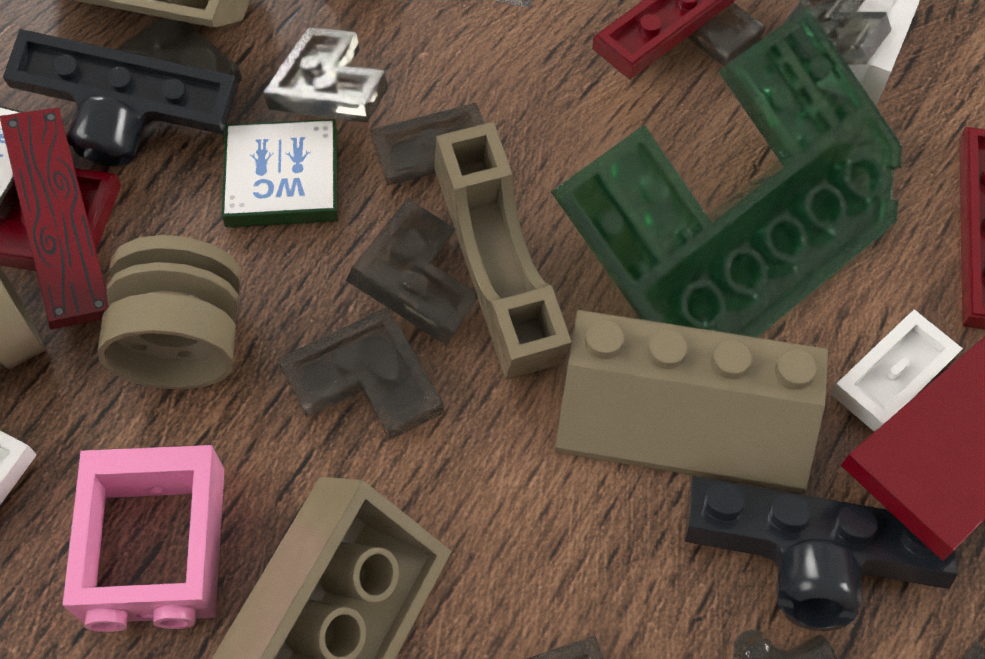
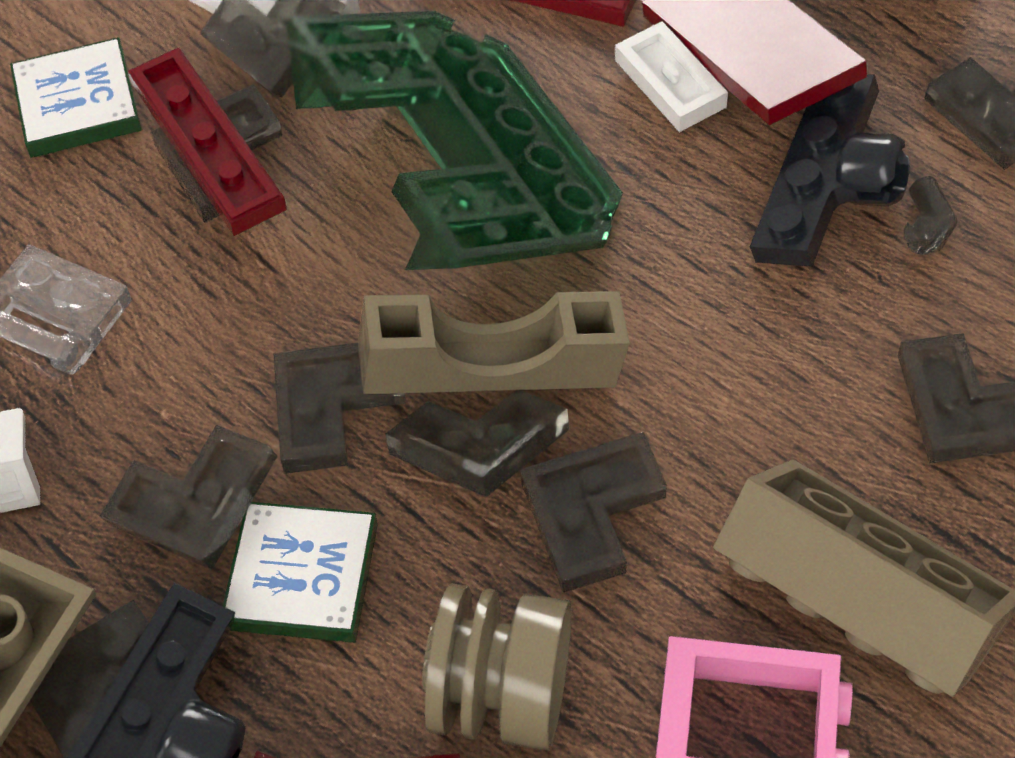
camera: 75 degrees left, 5 degrees down
(693, 401) = (678, 229): dark tan slope -> none

